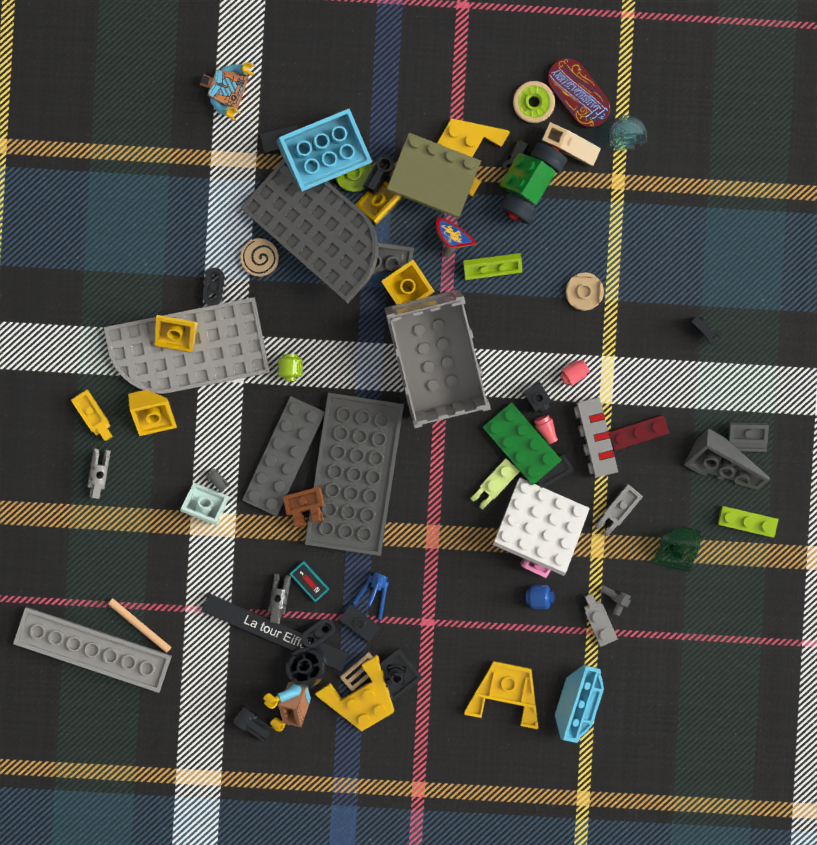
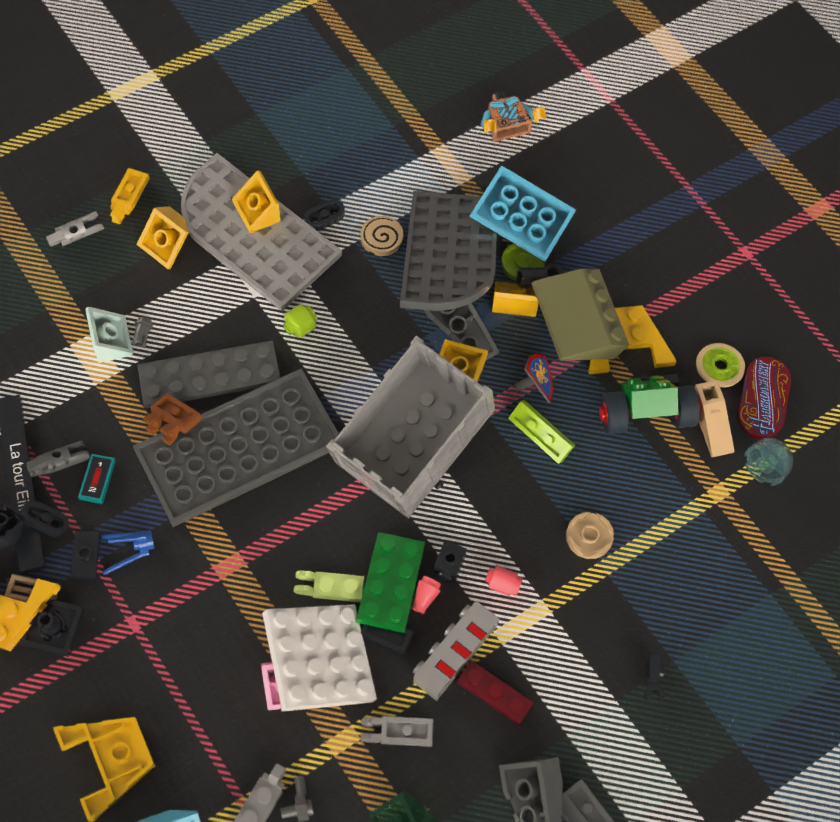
camera: 50 degrees right, 25 degrees down
(539, 597) = (241, 714): blue head -> none

